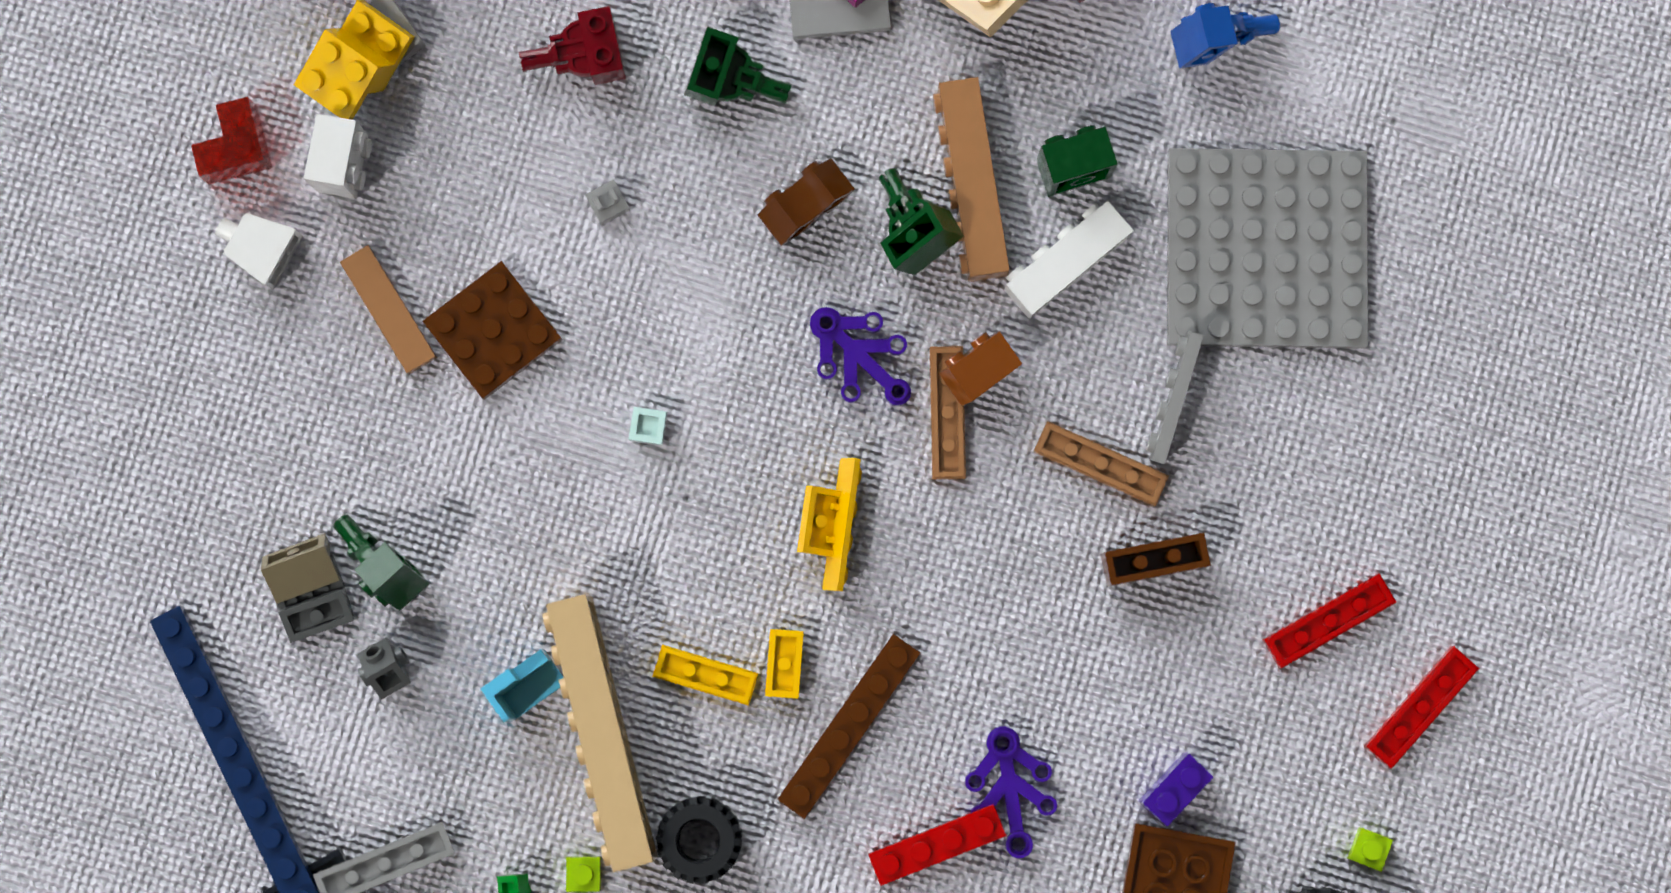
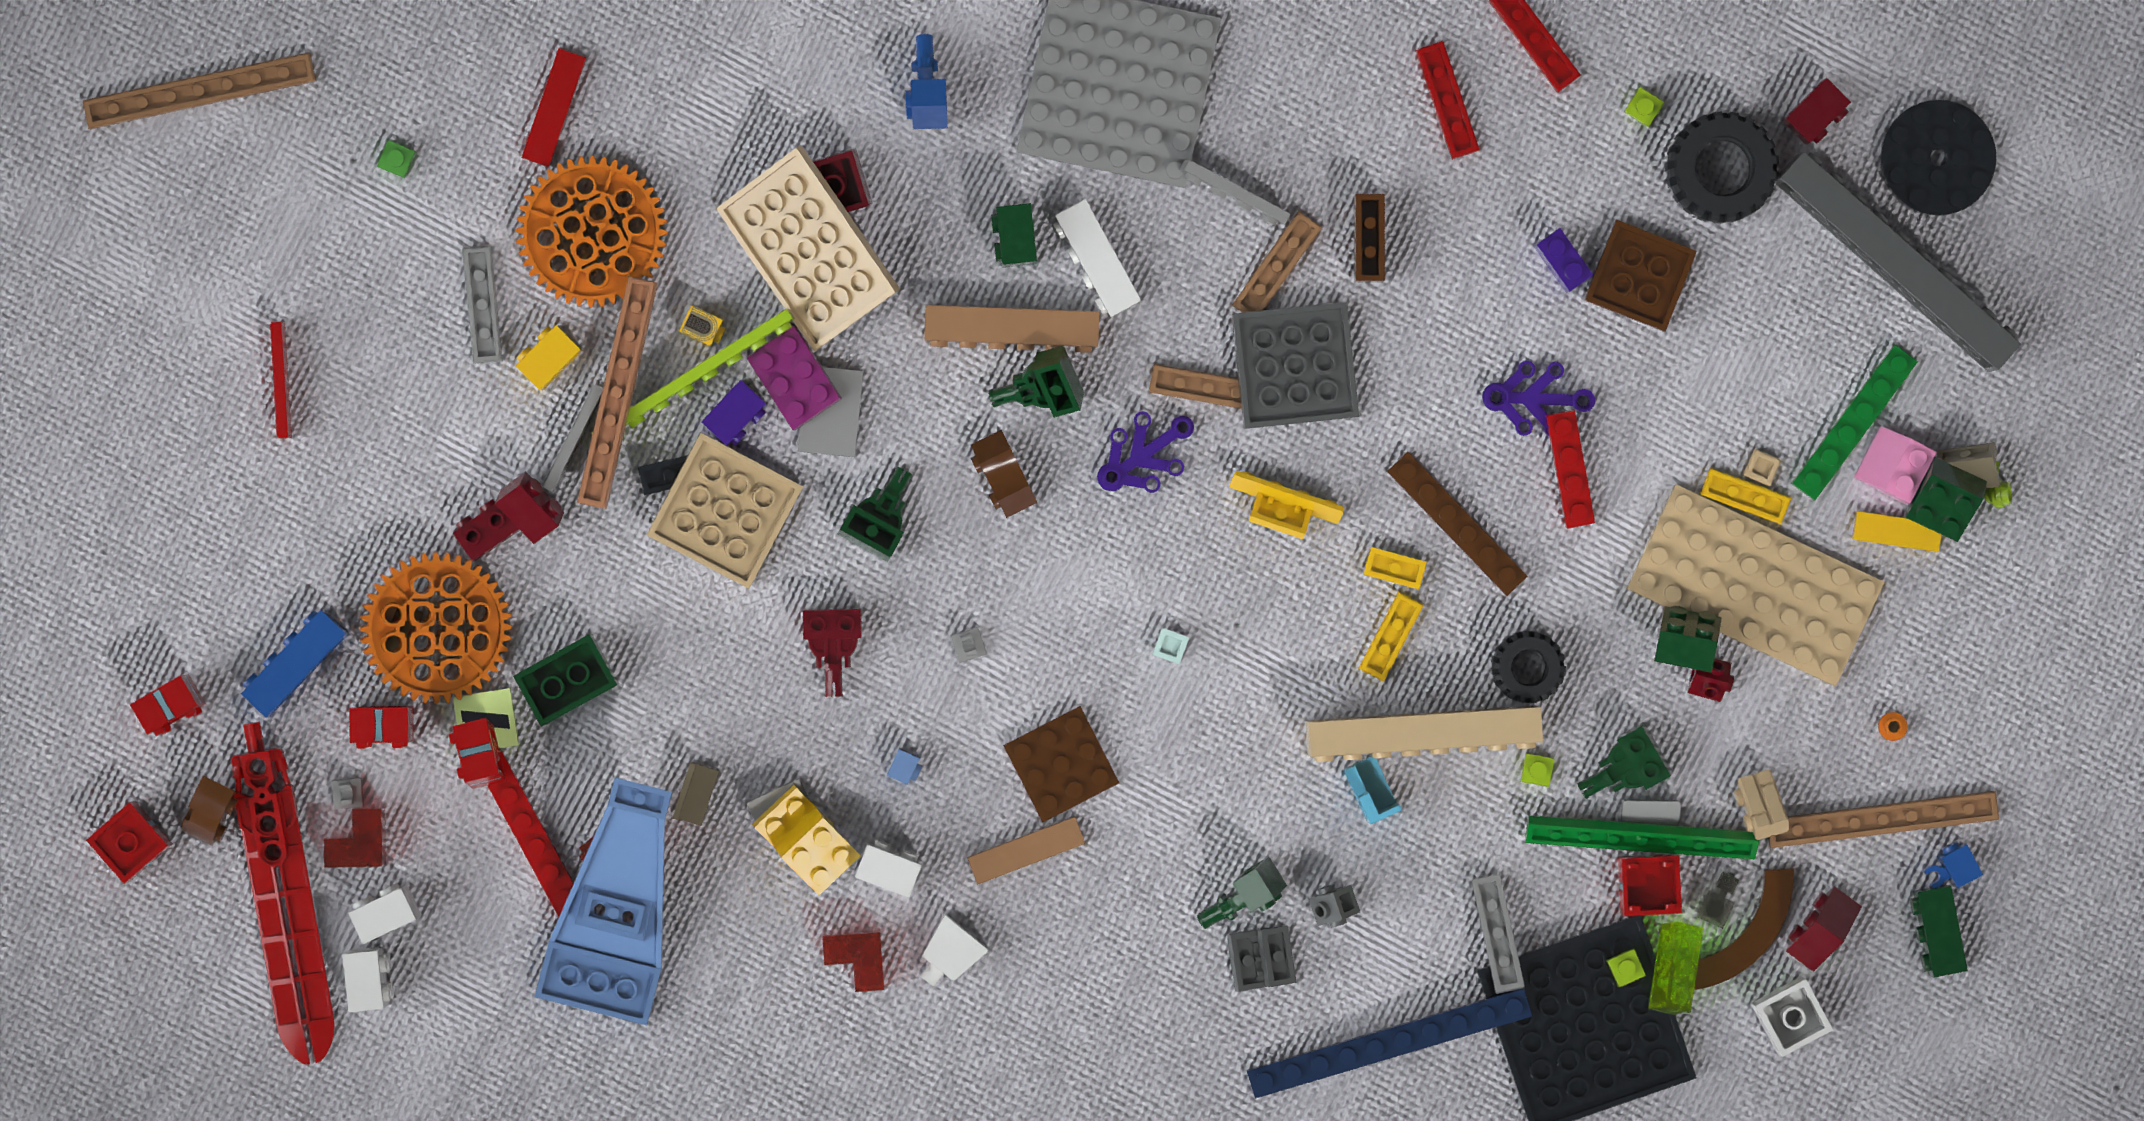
camera: 75 degrees left, 5 degrees up
(299, 568) = (1235, 963): dark tan panel -> none
(457, 155) = (905, 767): none -> medium blue plate
(979, 368) = (1176, 353): dark orange brick -> none
(993, 505) = (1295, 365): none -> dark grey plate

